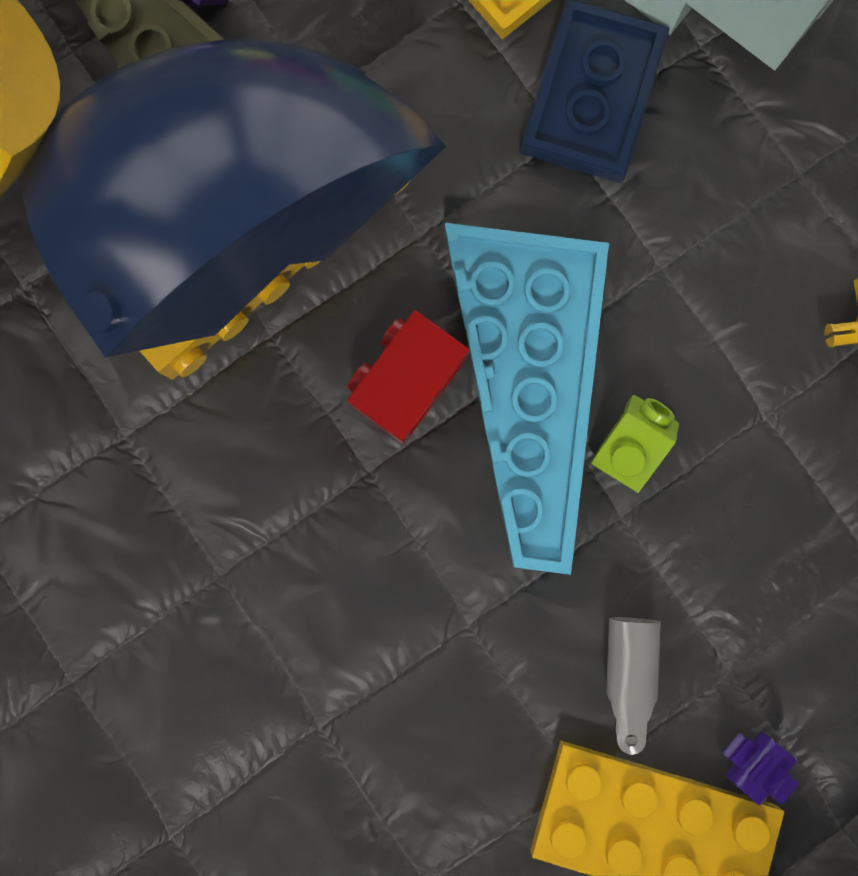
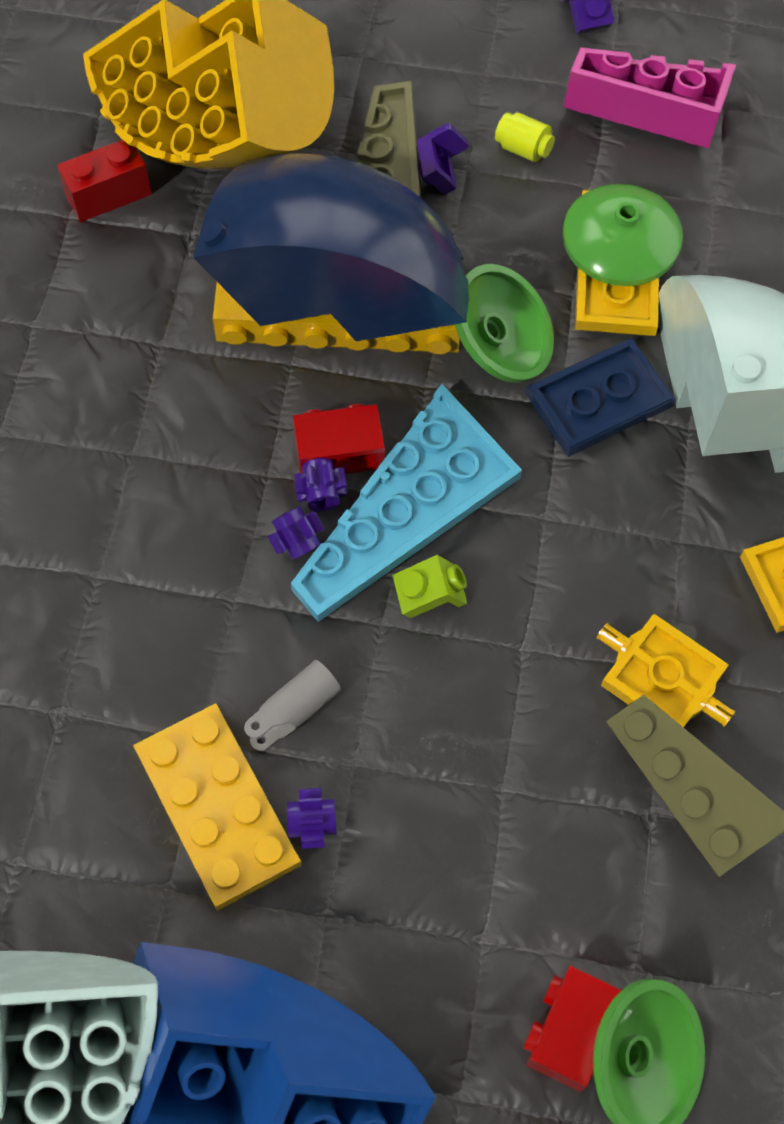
camera: 40 degrees right, 20 degrees down
(439, 440) = (320, 484): none -> dark purple gear
(454, 95) = (506, 325): none -> bright green dish
(467, 513) = (296, 532): none -> dark purple gear

